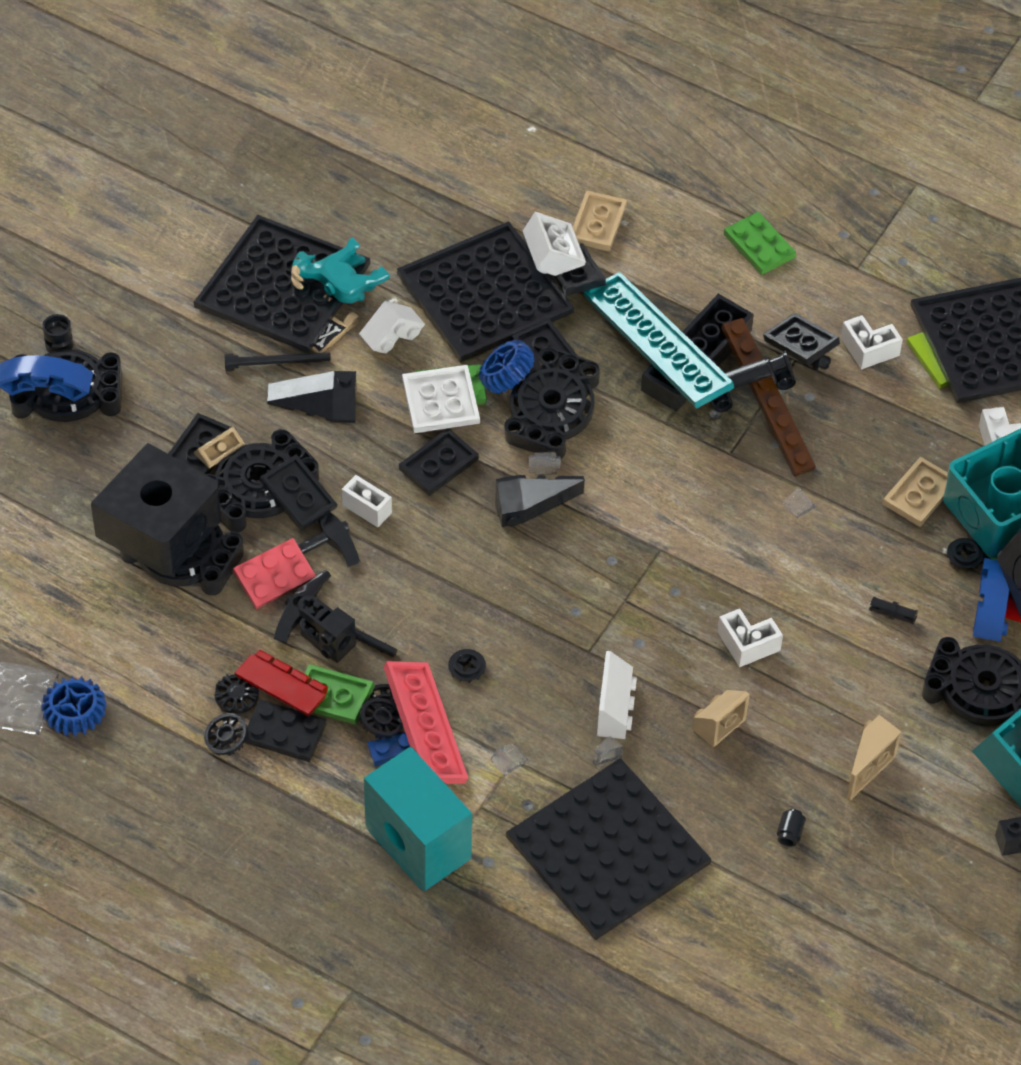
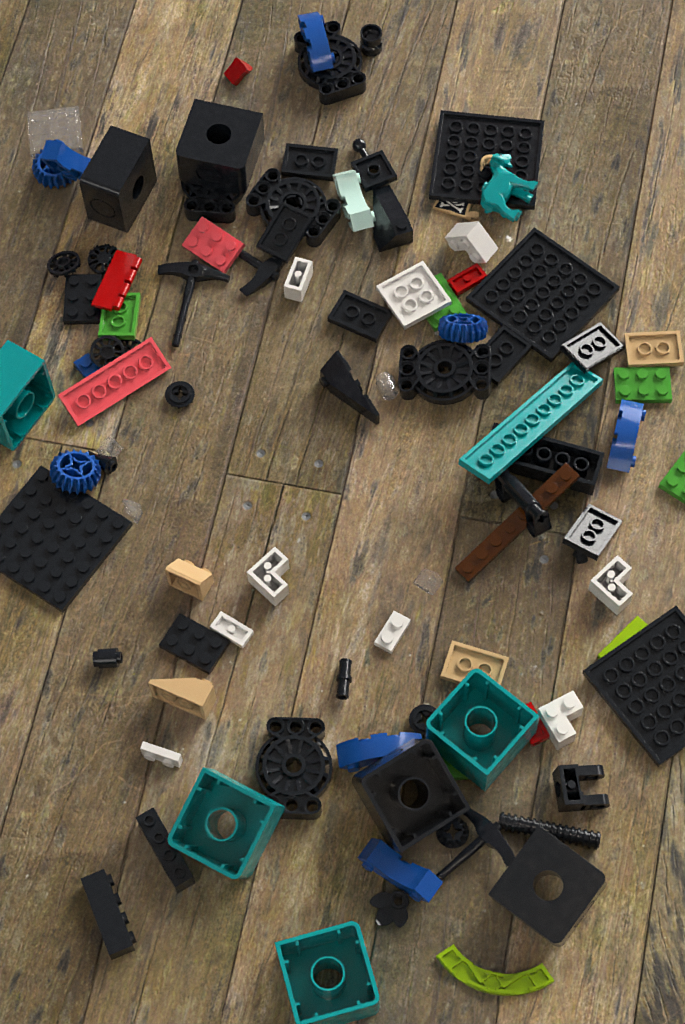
camera: 75 degrees right, 10 degrees up
(29, 479) = (237, 71): none -> red tile
(99, 672) = (63, 158): none -> blue brick
(152, 626) = (118, 179): none -> black piece
(219, 447) = (309, 172): tan slope -> none
(232, 397) = (374, 161): none -> black plate
(233, 361) = (398, 155): black piece -> none
(298, 419) = (354, 203): none -> light aqua brick
(334, 628) = (167, 292): black brick -> none
(435, 349) = (466, 279): none -> red plate
(529, 764) = (107, 463): none -> black cone
(535, 792) = (75, 471): none -> blue gear
(553, 244) = (604, 322): white slope -> none
(616, 697) = (179, 498): white slope -> none
(635, 246) = (642, 384): none -> bright green plate
(688, 265) = (626, 428): none -> blue brick
(797, 697) = (231, 629): none -> white plate
(799, 740) = (194, 643): none -> black plate
(850, 552) = (392, 632): none -> white plate
(926, 809) = (167, 757): none -> white plate

